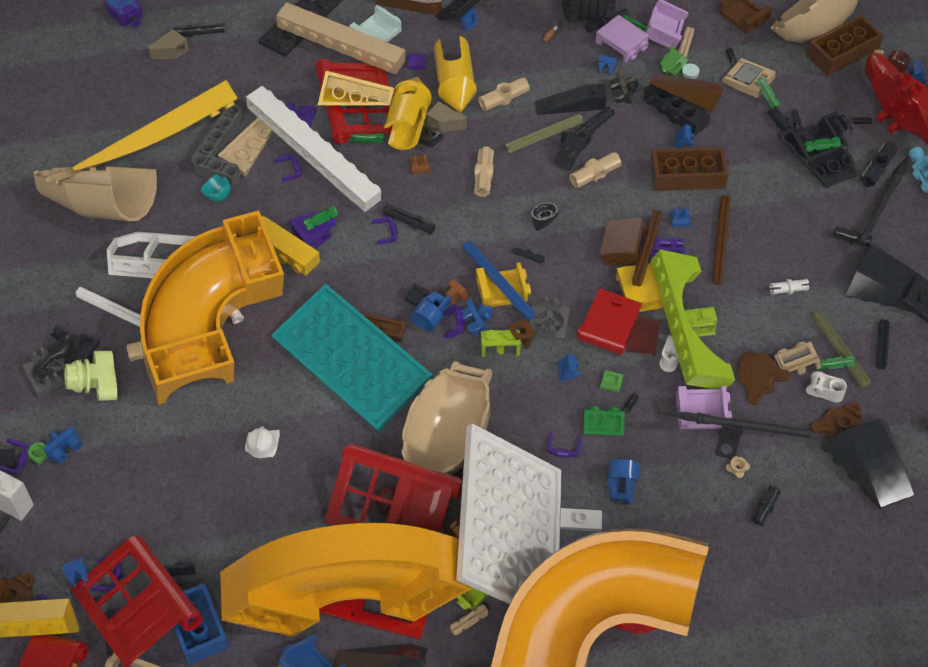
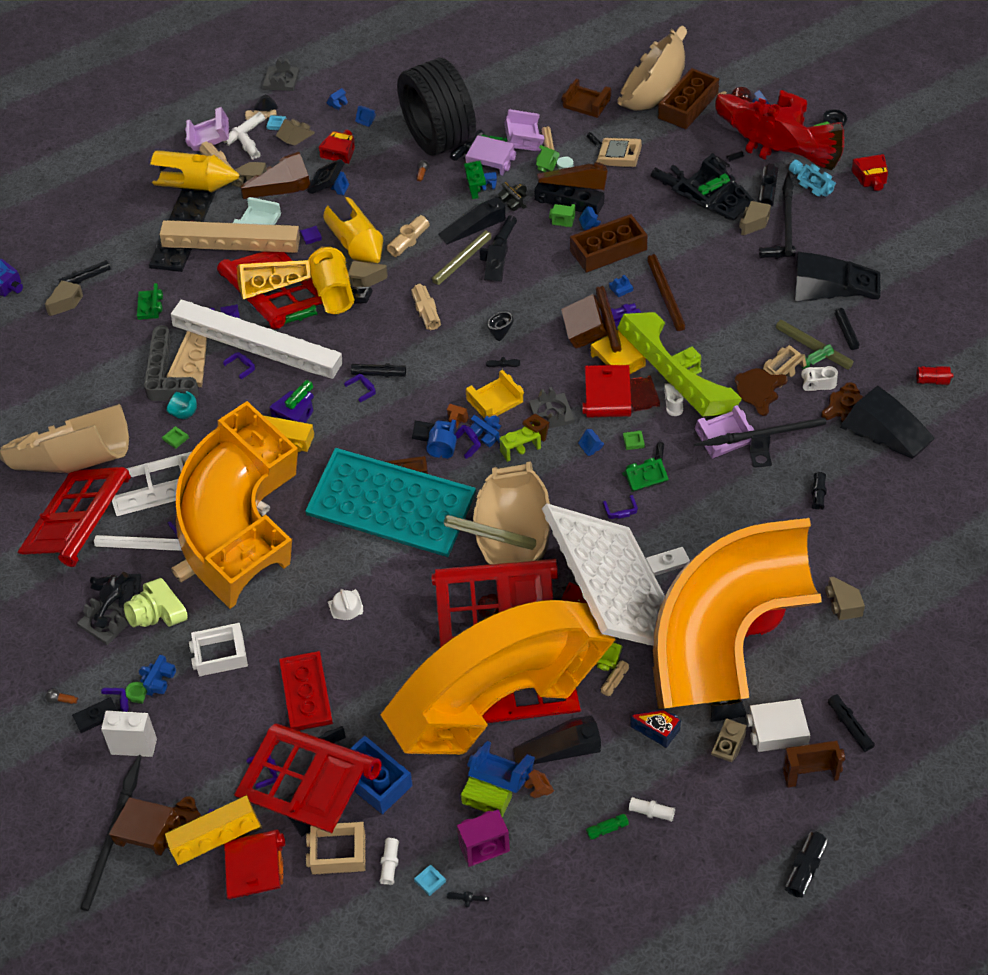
camera: 20 degrees left, 5 degrees down
(53, 272) = (69, 530): none -> red door
(75, 570) = (232, 775): blue tile -> none
(146, 446) = (213, 636): none -> white window
(166, 126) = (107, 364): yellow wedge -> none
(182, 514) = (305, 691): none -> red plate
(197, 217) = (175, 437): none -> bright green tile
(241, 76) = (149, 303): none -> green bracket
(418, 426) = (489, 532): none -> olive axle
(419, 164) = (362, 321): dark orange tile -> none
(499, 280) = (490, 391): blue axle -> none
(594, 57) = (475, 177): none -> green bracket
(595, 169) = (525, 272): tan piece -> none
(626, 471) = (685, 506): blue piece -> none
(660, 124) = (562, 215): none -> bright green brick
(734, 632) = (847, 599): none -> dark tan slope
(738, 461) = (778, 464): tan plate -> none
(767, 91) = (643, 157): green axle -> none
(789, 286) = (744, 310): white pin -> none
(848, 193) = (755, 217): none -> dark tan slope

